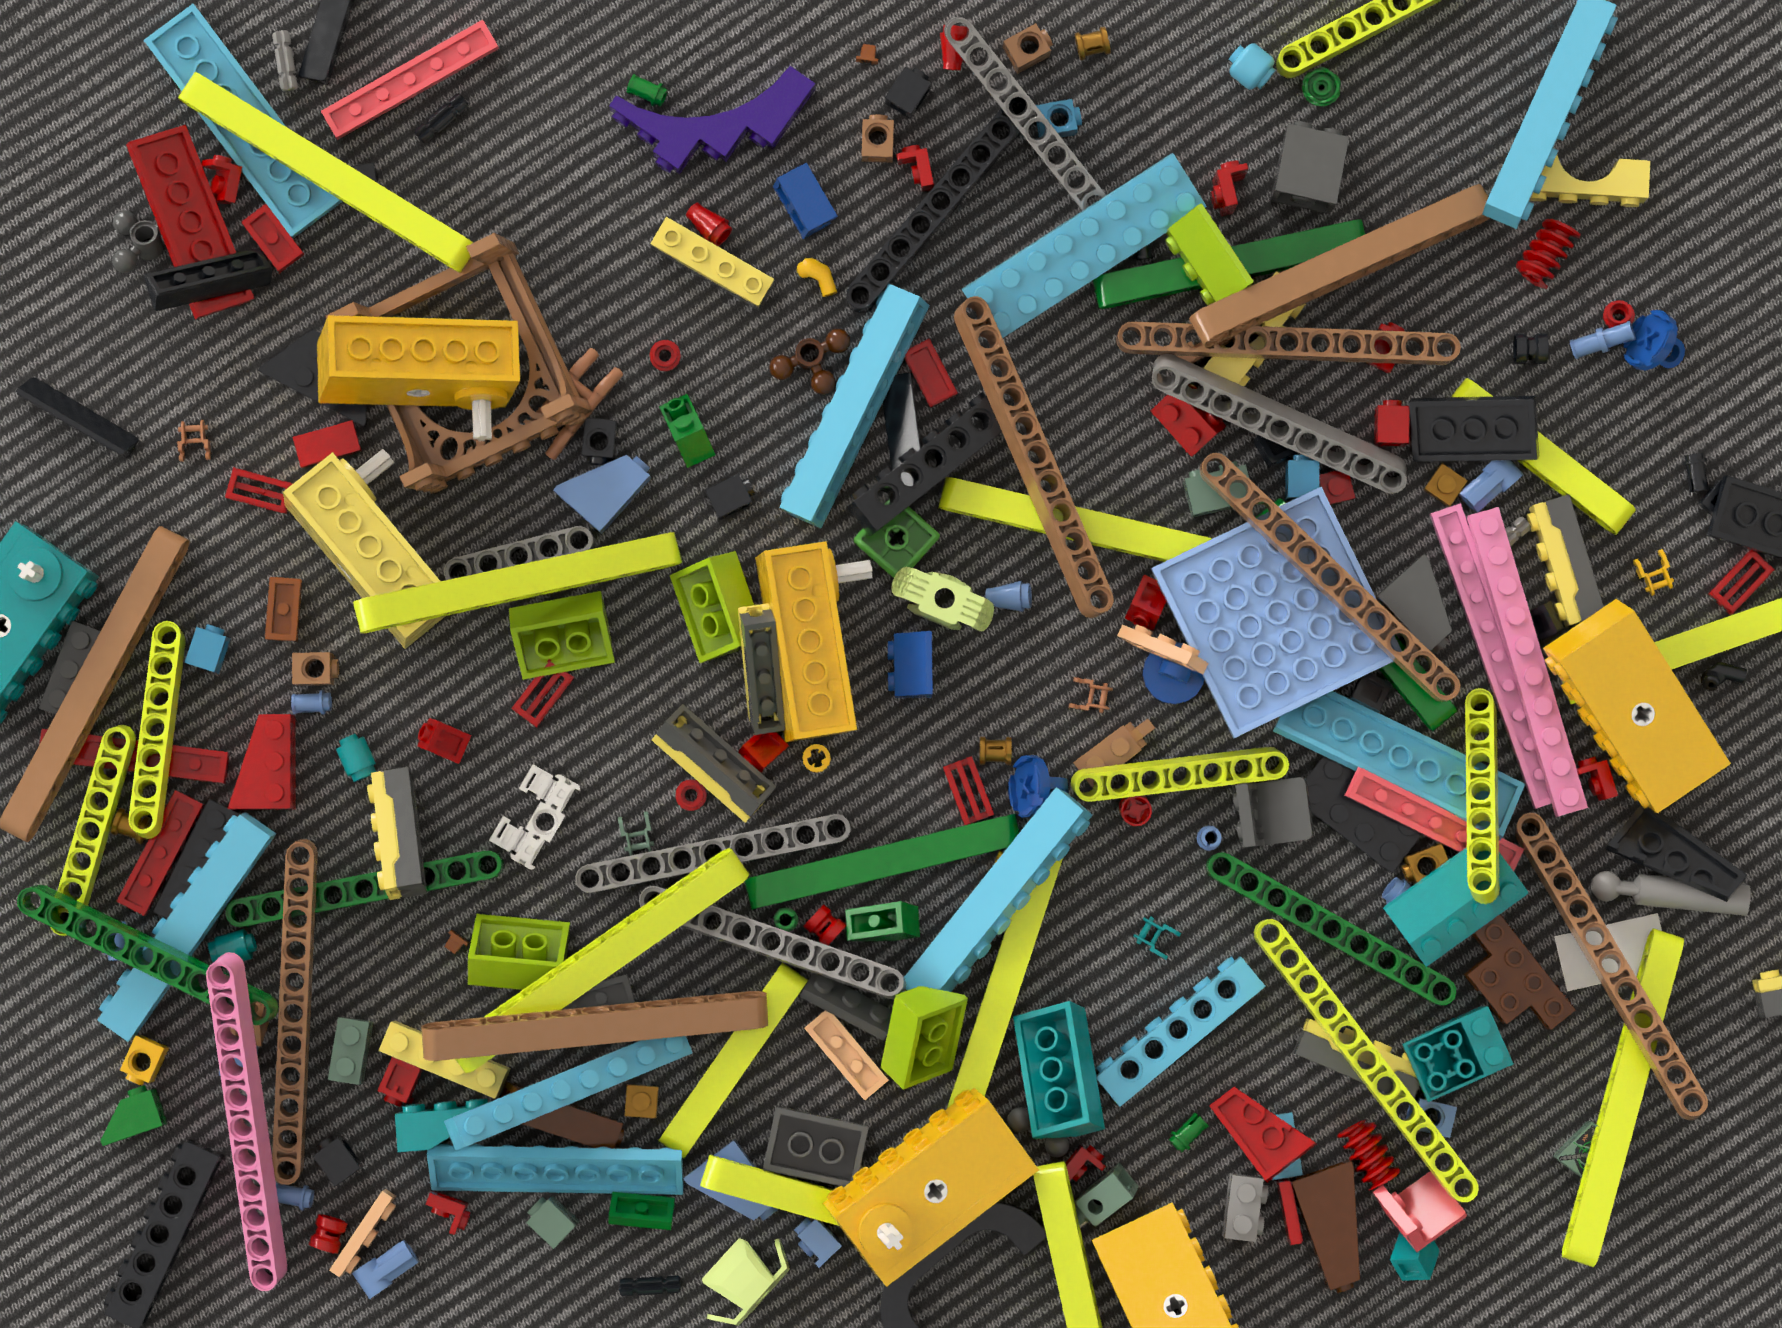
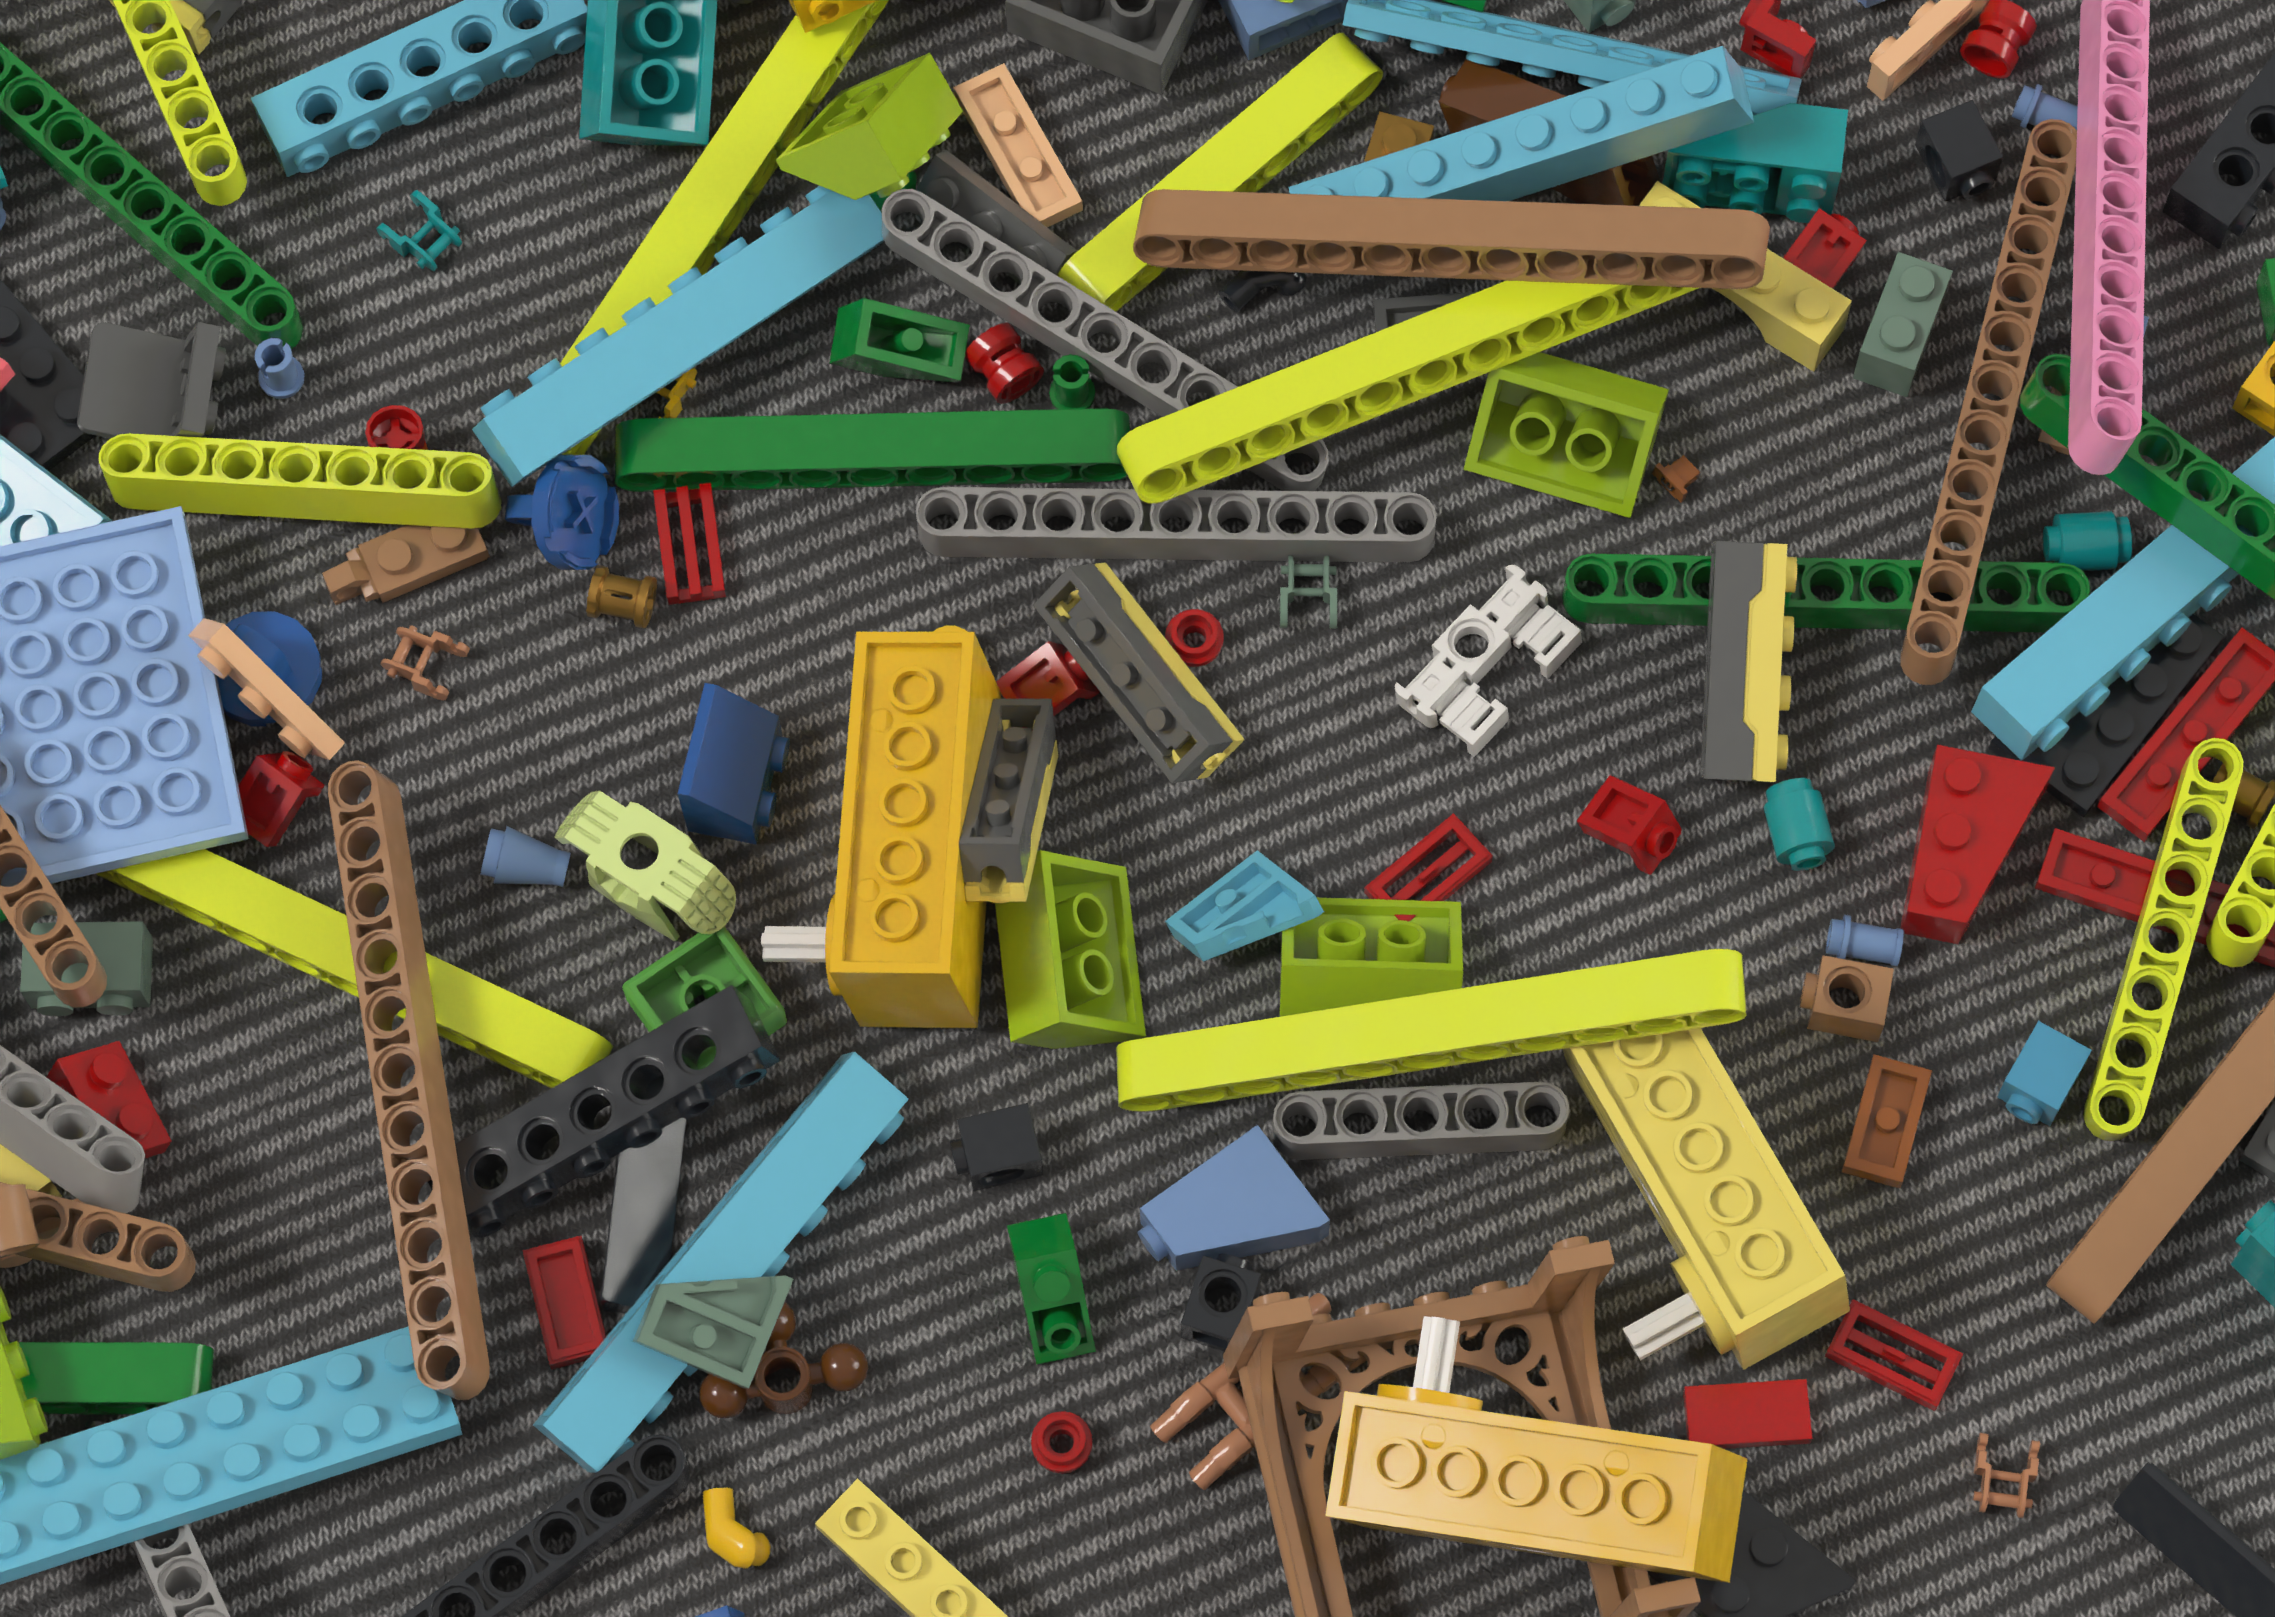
camera: 165 degrees left, 15 degrees down
(632, 648) = (1243, 908): none -> medium azure wing
(846, 366) = (715, 1323): none -> sand green wing

